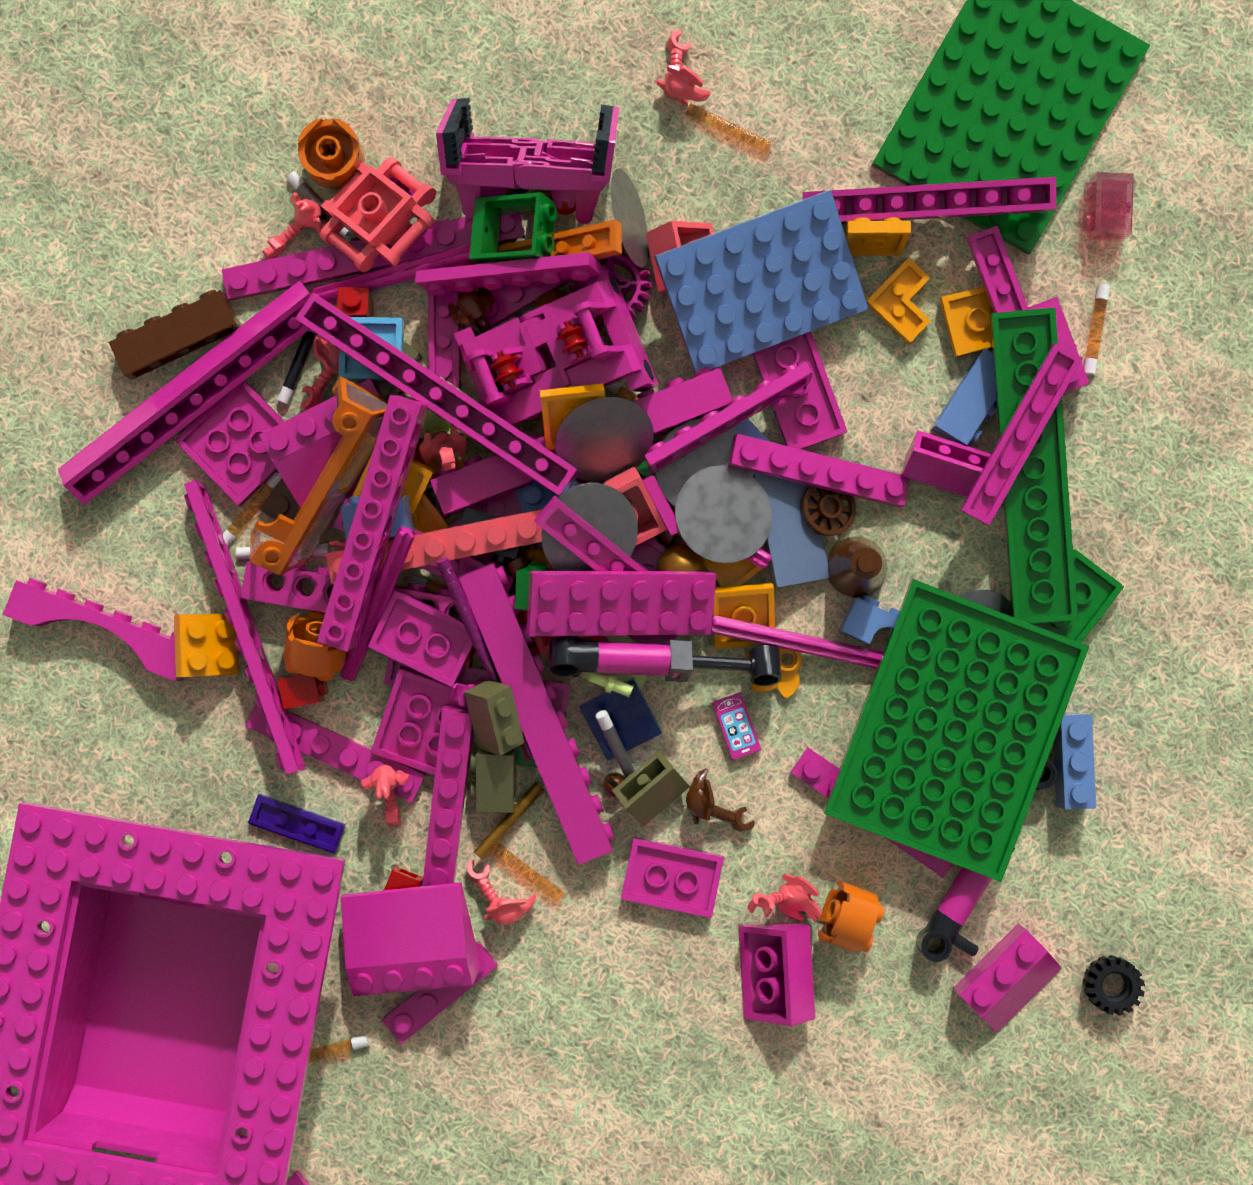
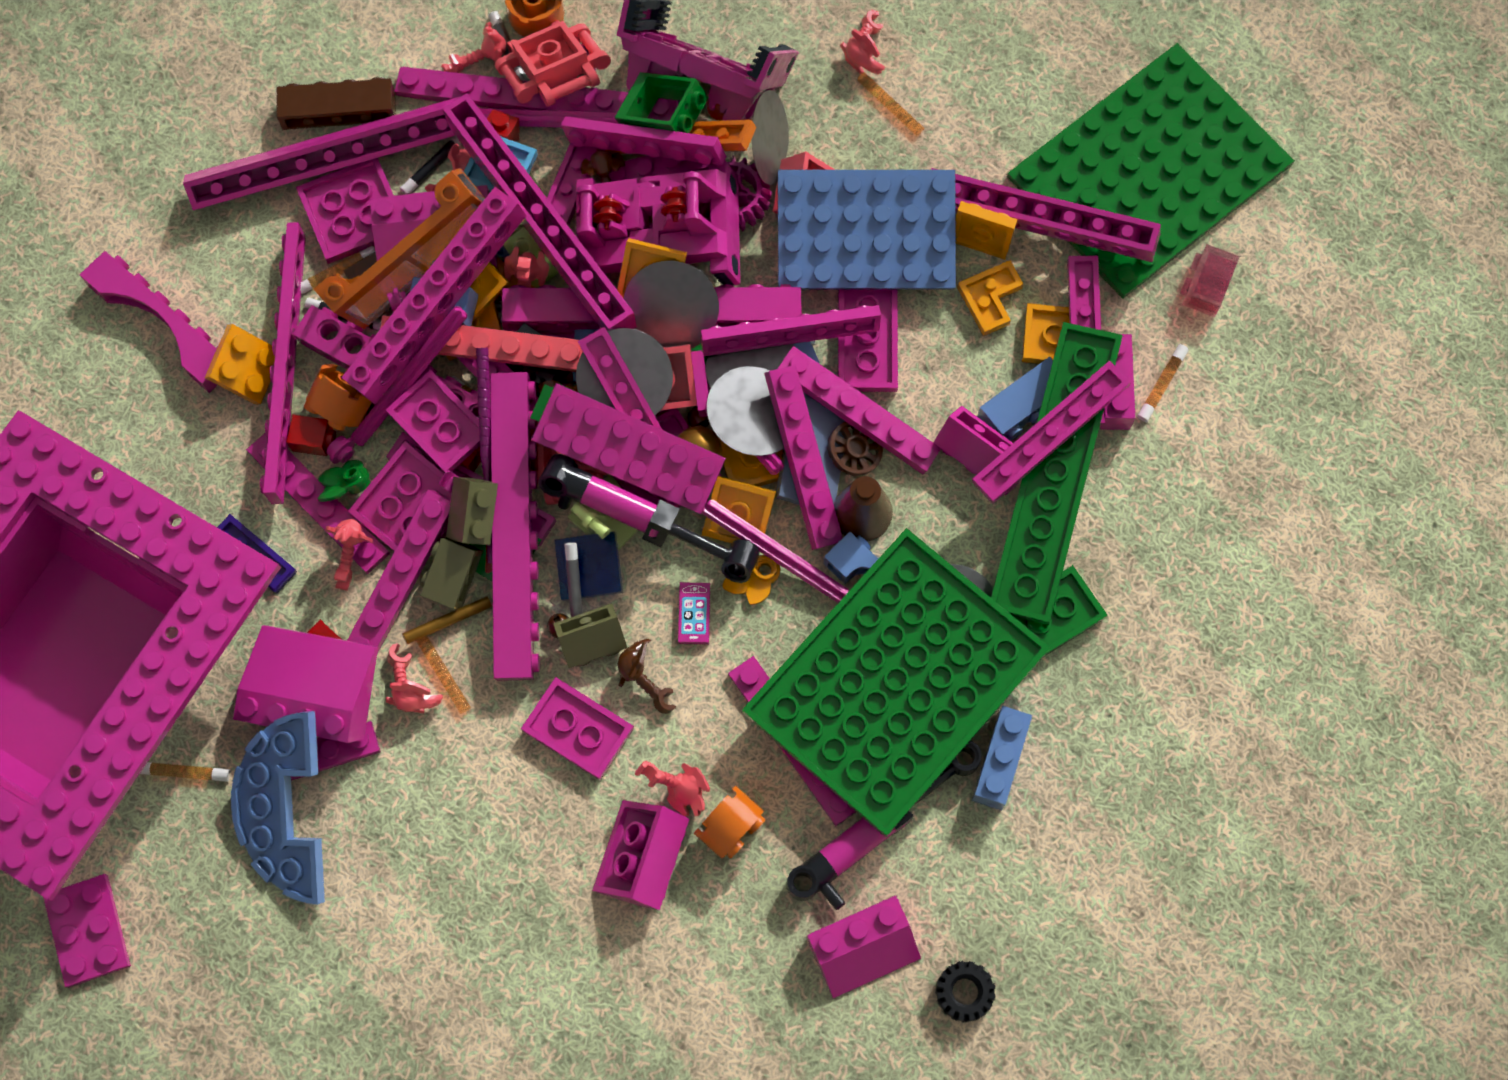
camera: 20 degrees right, 15 degrees down
(334, 533) = (396, 298): none -> dark pink plate
(337, 693) = (341, 450): none -> dark pink plate
(353, 723) = (338, 480): none -> green plate
(418, 1065) = (265, 810): none -> medium blue plate
(787, 540) = (803, 457): none -> dark pink plate

